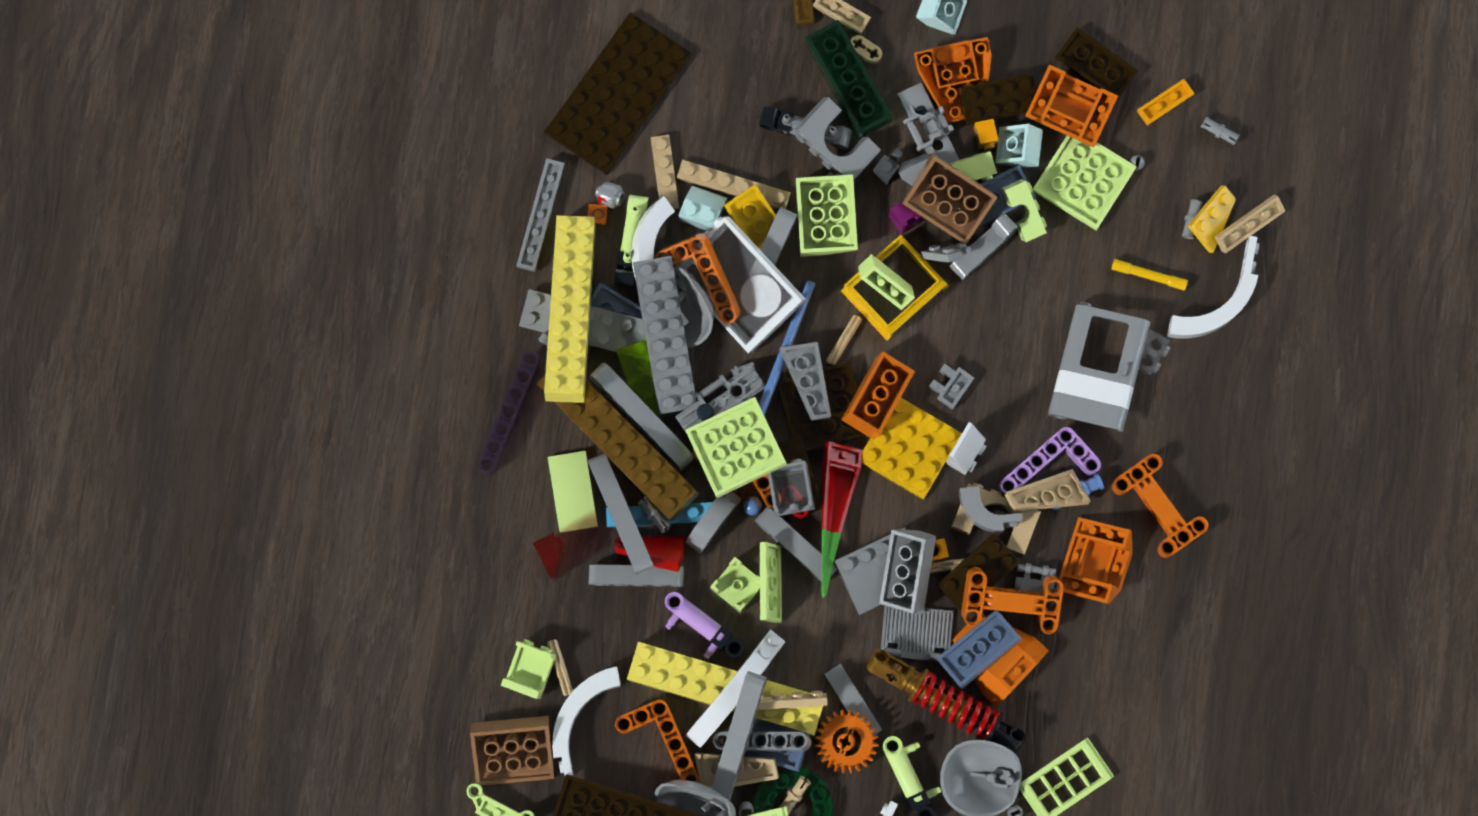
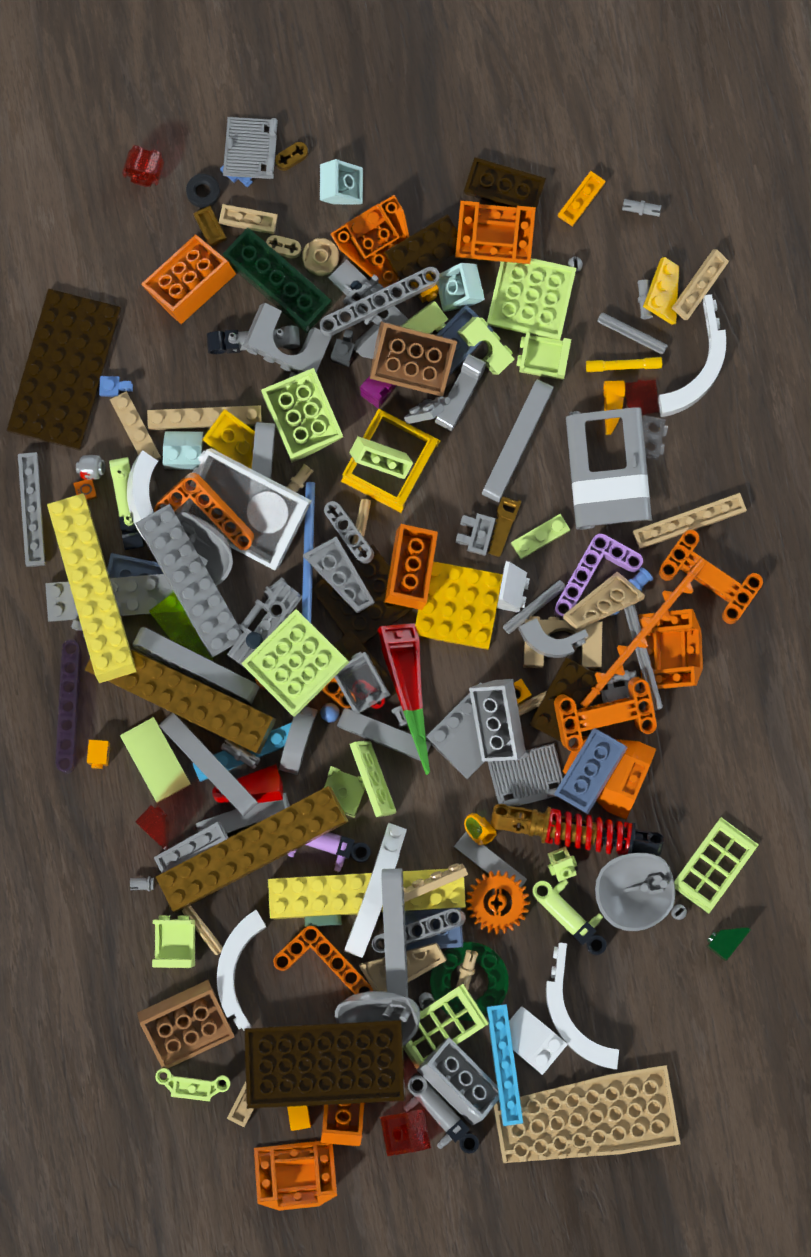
camera: 20 degrees left, 0 degrees up
(519, 604) = (142, 883): none -> light grey pin
(521, 466) = (98, 753): none -> light orange brick
(576, 586) = (191, 847): none -> light grey plate
(633, 608) = (252, 849): none -> pearl gold brick
(657, 125) = (111, 386): none -> medium blue plate
(676, 699) = (320, 921): none -> sand green beam
(765, 49) = (189, 278): none -> orange slope
(802, 275) = (300, 478): none -> tan pin
(817, 530) = (400, 716): none -> light grey bush
(834, 340) = (348, 532): none -> light grey beam
(854, 666) = (479, 829): none -> light orange rock
(897, 71) = (320, 256): none -> tan tile
(921, 731) = (564, 867): none -> yellowish green brick
(945, 128) = (386, 295): none -> light grey beam
(979, 387) = (503, 525): none -> pearl gold piece
(981, 474) = (533, 607): none -> light grey axle
(1011, 410) = (540, 536): none -> yellowish green plate
(1022, 311) = (517, 440): none -> light grey beam
(1068, 557) = (643, 657): none -> light grey axle
(1070, 542) = (640, 640): none -> orange plant
(1075, 240) = (544, 356): none -> yellowish green panel
(1127, 304) = (613, 399): none -> light orange piece
(1156, 310) = (642, 395): none -> clear red piece
(1158, 445) = (689, 520): none -> tan plate
(1168, 247) = (632, 333): none -> light grey axle

